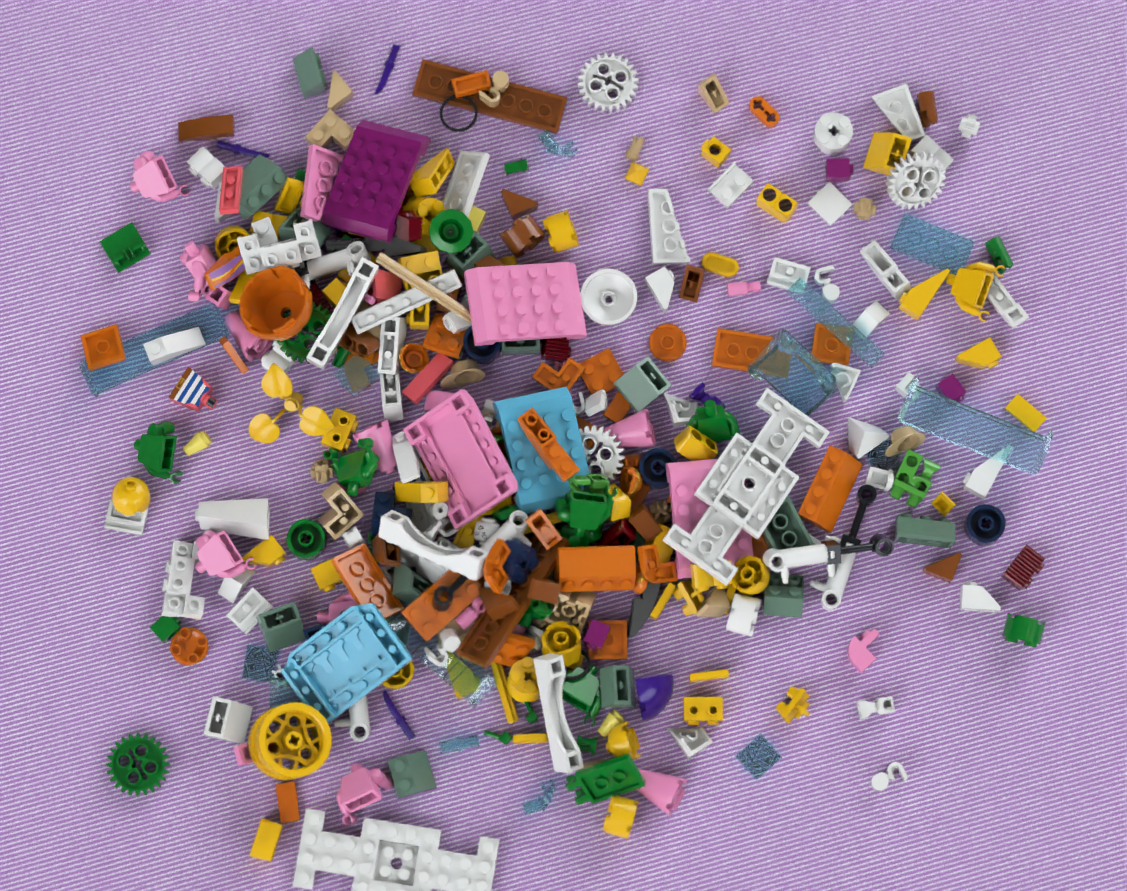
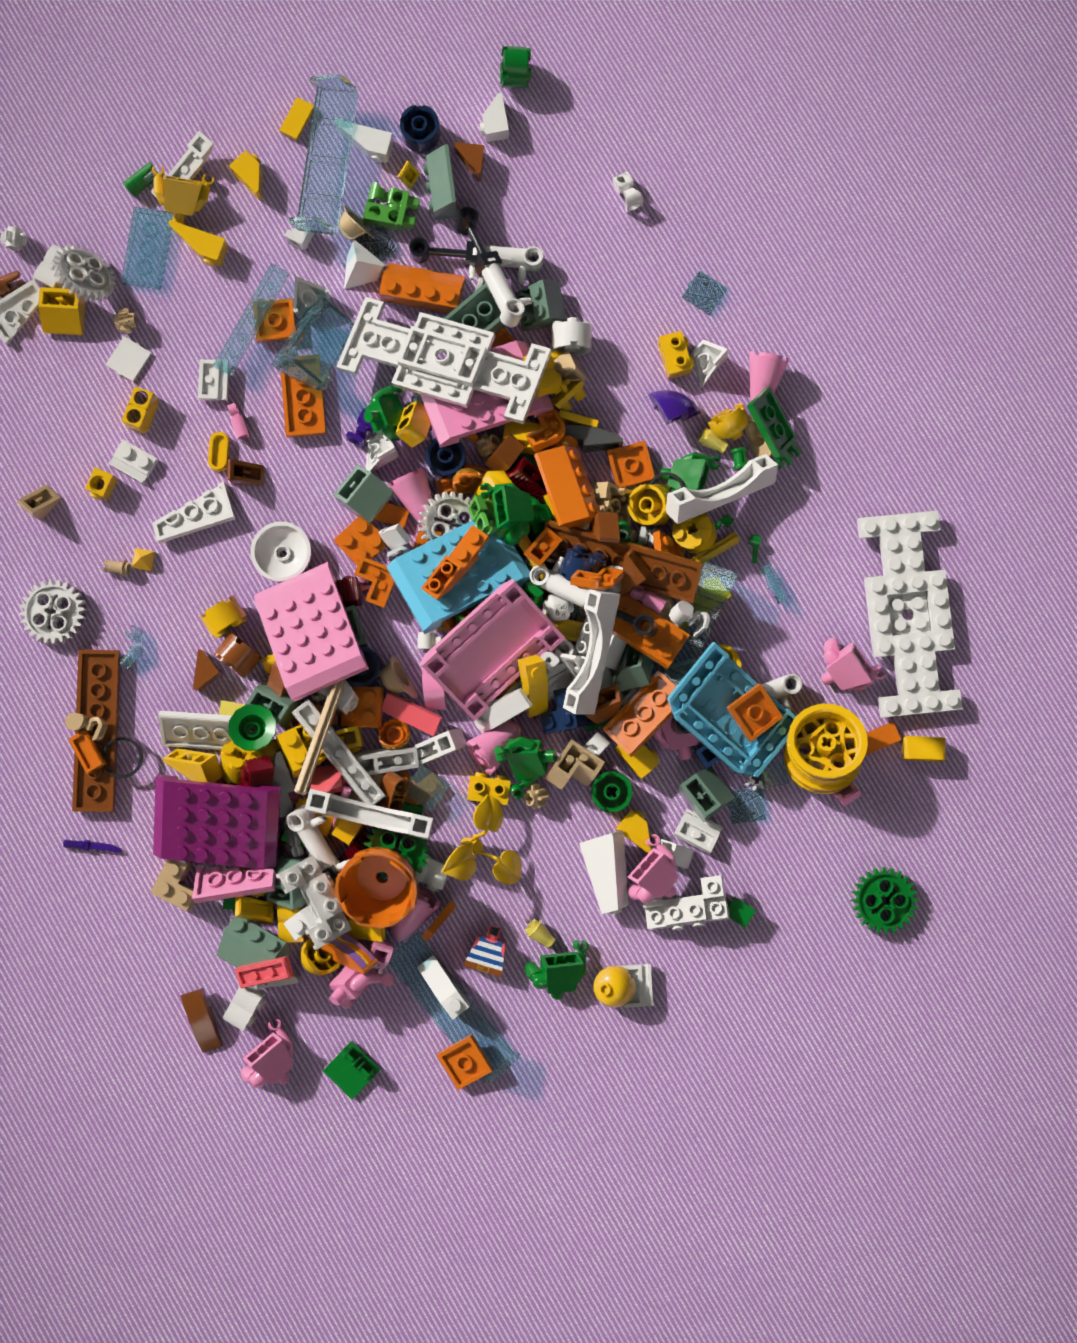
camera: 105 degrees left, 5 degrees up
(189, 646) = (750, 882): orange dish -> none
(228, 720) = (816, 820): white slope -> none
(237, 149) = (216, 980): dark purple piece -> none
(310, 78) = (116, 926): sand green slope -> none
(339, 92) = (128, 888): tan slope -> none
(339, 682) = (754, 712): none -> orange plate
(400, 720) = (765, 649): dark purple piece -> none
(412, 774) = (817, 622): sand green slope -> none
(516, 166) = (165, 683): green pin -> none
(530, 738) = (749, 514): yellow tile -> none
(542, 802) = (808, 487): clear light blue piece -> none
(596, 635) = (631, 473): magenta brick -> none
(617, 687) = (678, 441): sand green slope -> none
(621, 816) = (804, 405): yellow brick -> none
(661, 286) = (257, 502): white slope -> none
(667, 342) = (313, 483): orange tile -> none
(709, 676) = (640, 357): yellow tile -> none
(751, 575) = (528, 332): yellow cylinder -> none
(767, 108) = (47, 447): orange beam -> none
(796, 707) = (637, 267): yellow hips -> none
(823, 137) = (53, 361): white brick -> none
(829, 291) = (220, 336): white leg -> none
(838, 170) = (91, 357): magenta brick -> none
(858, 653) = (576, 221): bright pink brick -> none
(871, 318) = (237, 288): white slope -> none
(880, 478) = (398, 240): white tile -> none
(880, 781) = (697, 169): white leg -> none
(885, 269) = (184, 286): white slope -> none
(951, 388) = (290, 193): magenta brick -> none
(1023, 568) = (452, 84): dark red brick -> none

